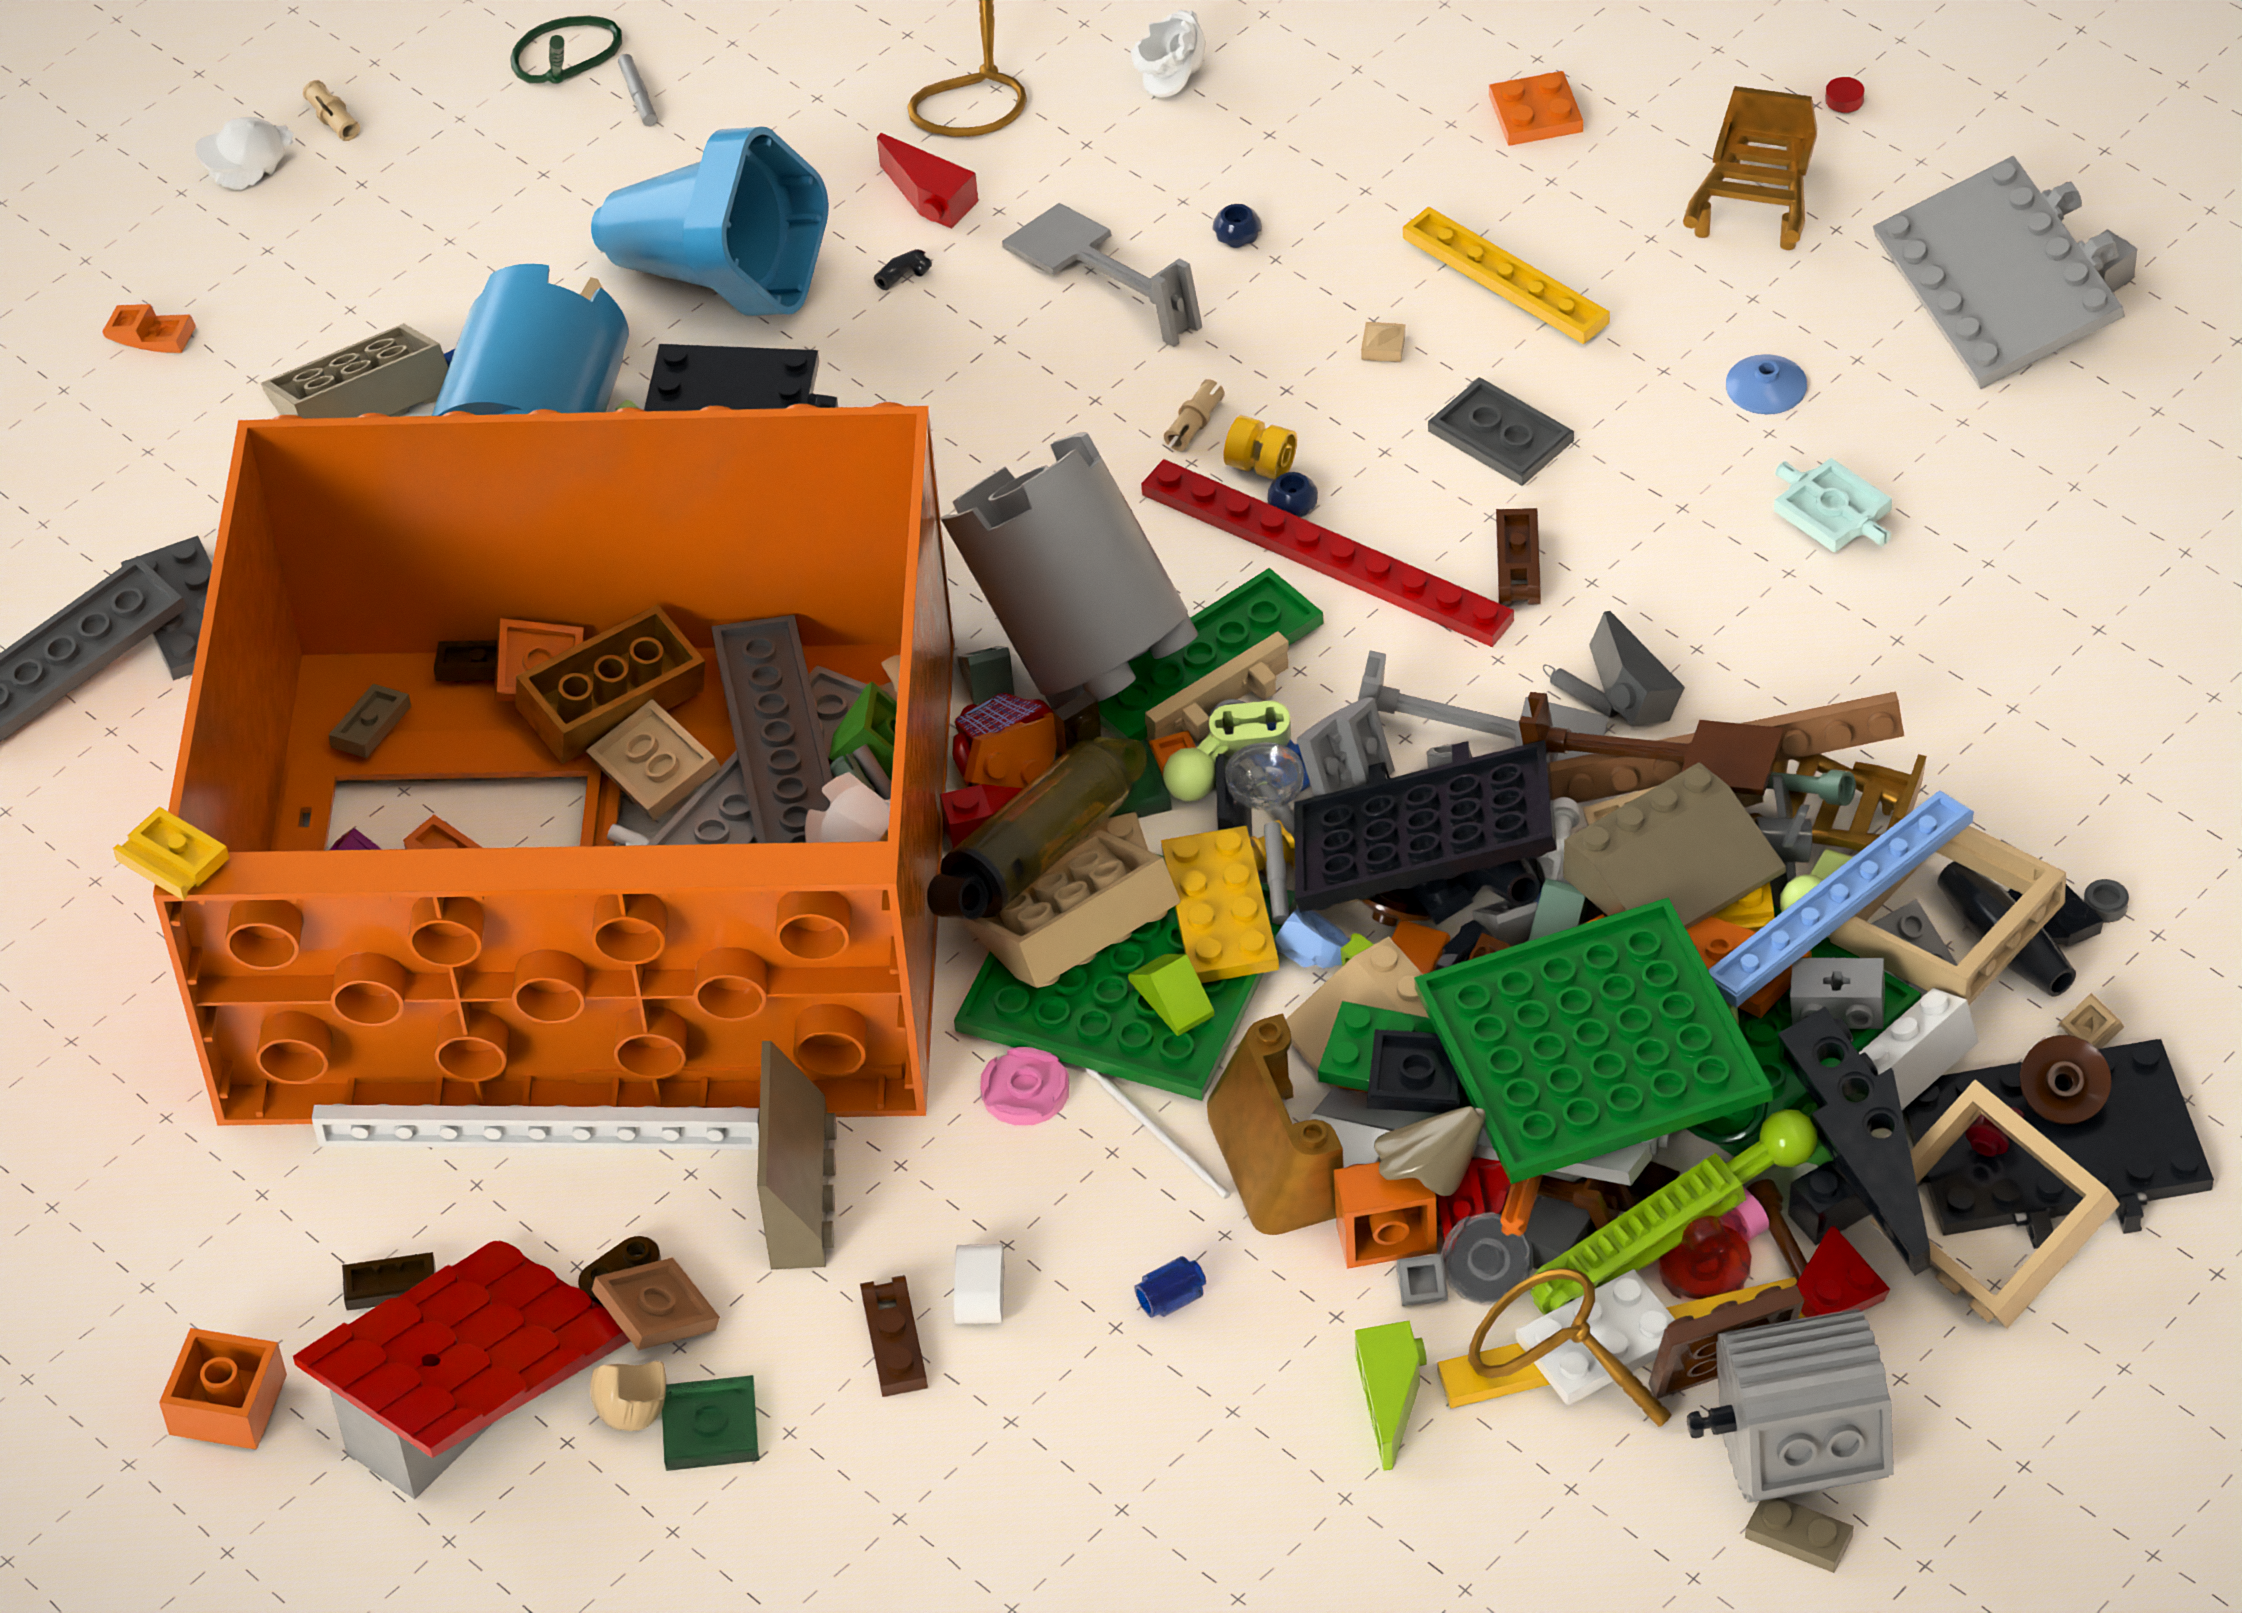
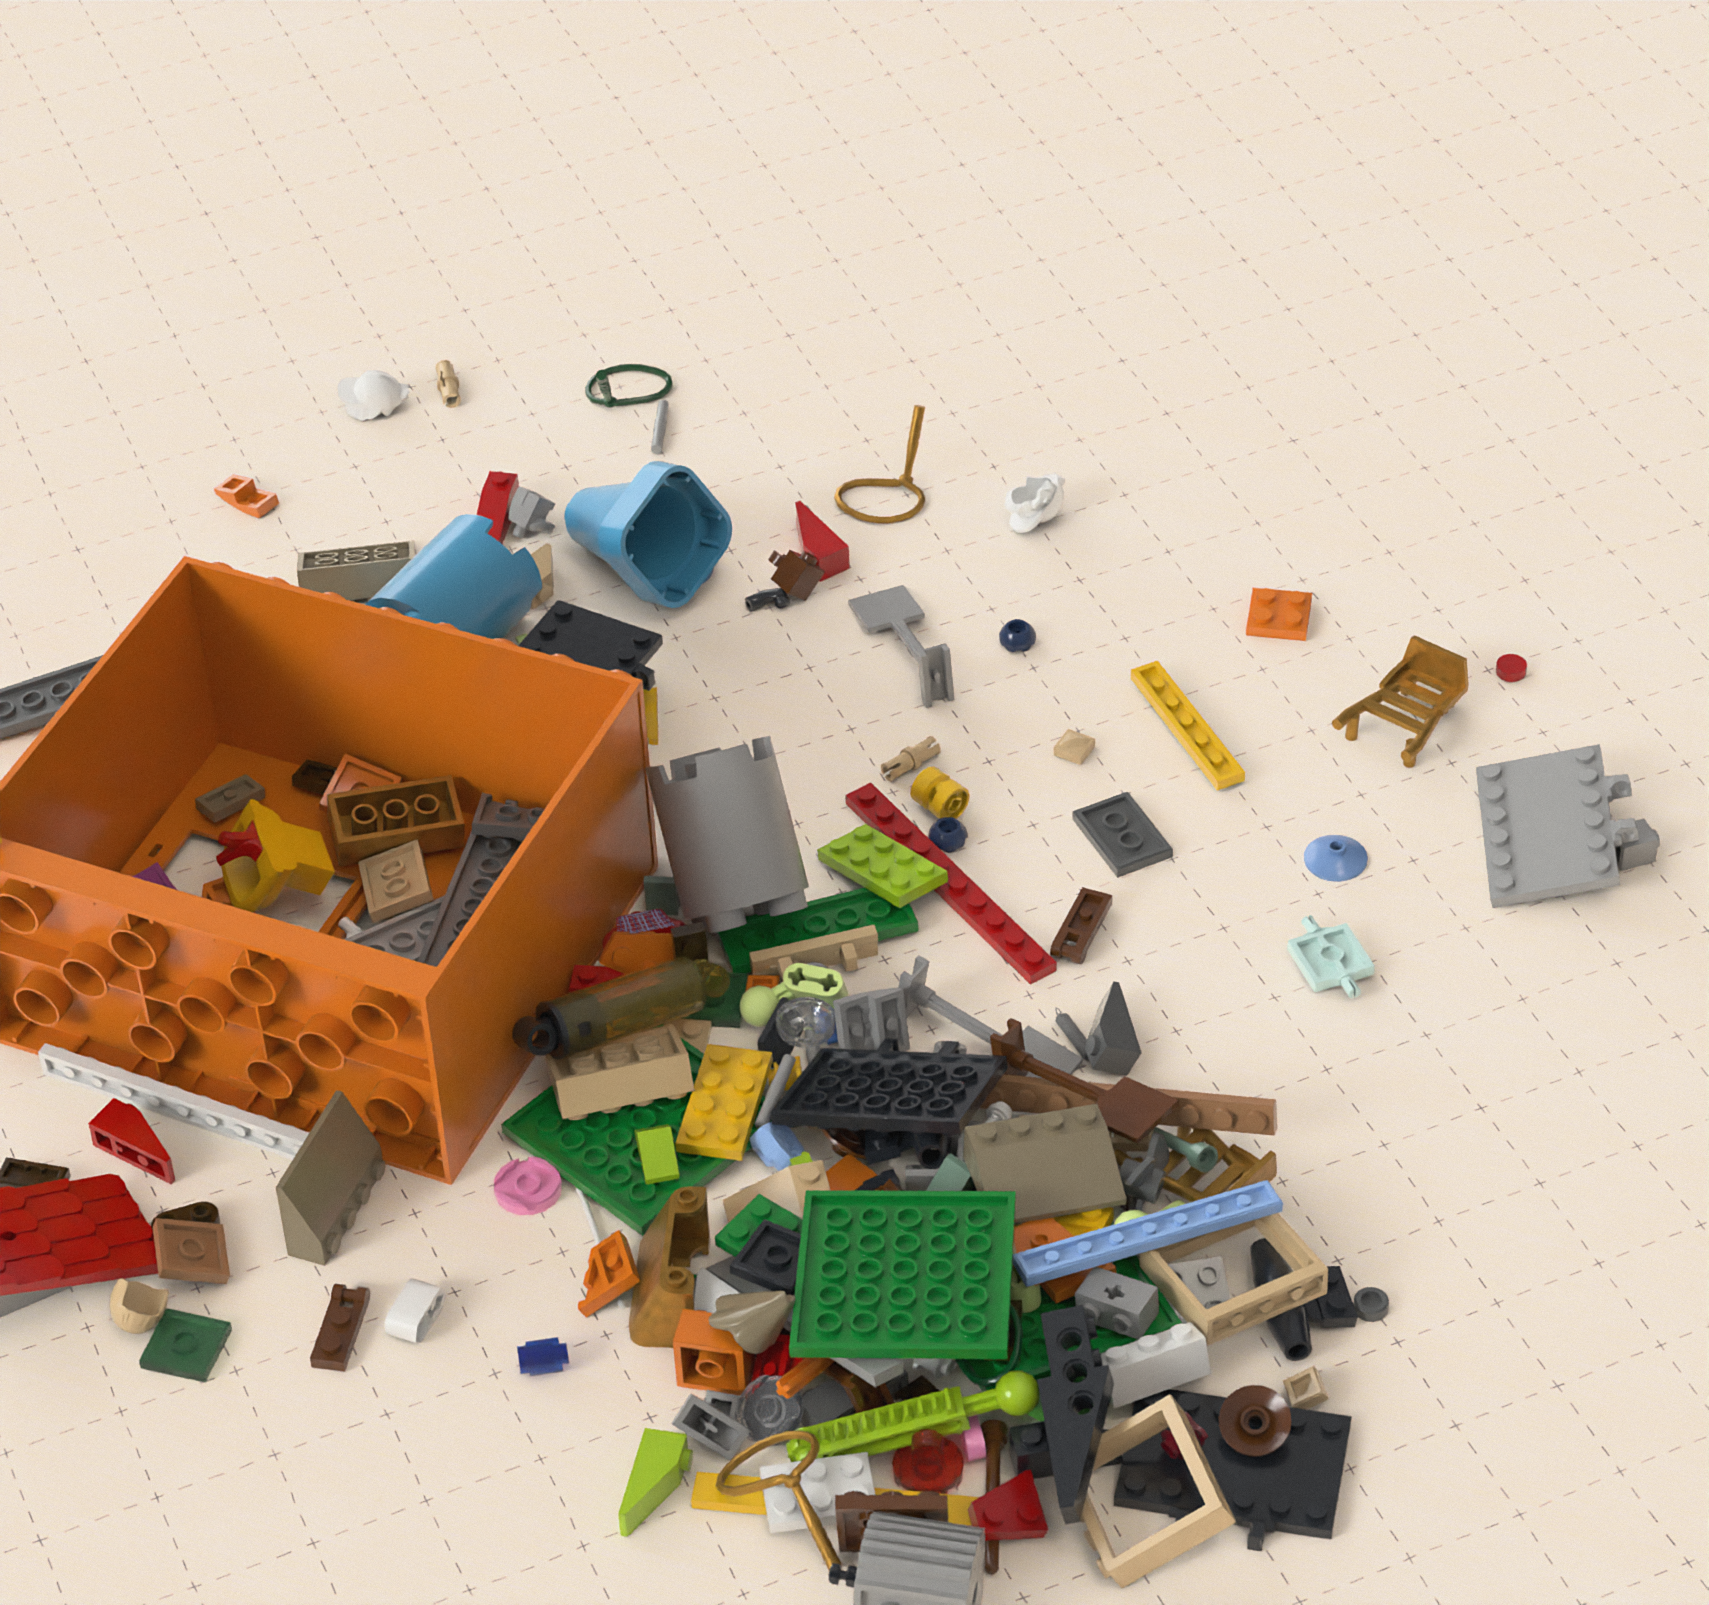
camera: 20 degrees right, 5 degrees down
(482, 780) = (268, 855): none -> yellow piece
(488, 239) = (496, 501): none -> red slope
(489, 1188) = (128, 1136): none -> red slope
(543, 242) = (530, 512): none -> light grey piece
(768, 640) = (502, 819): none -> dark grey wing
(926, 224) = (796, 573): none -> reddish brown brick
(1194, 1159) = (609, 1273): none -> orange wing
(1243, 556) = (882, 865): none -> lime plate
(1431, 1302) = (710, 1426): none -> light grey slope

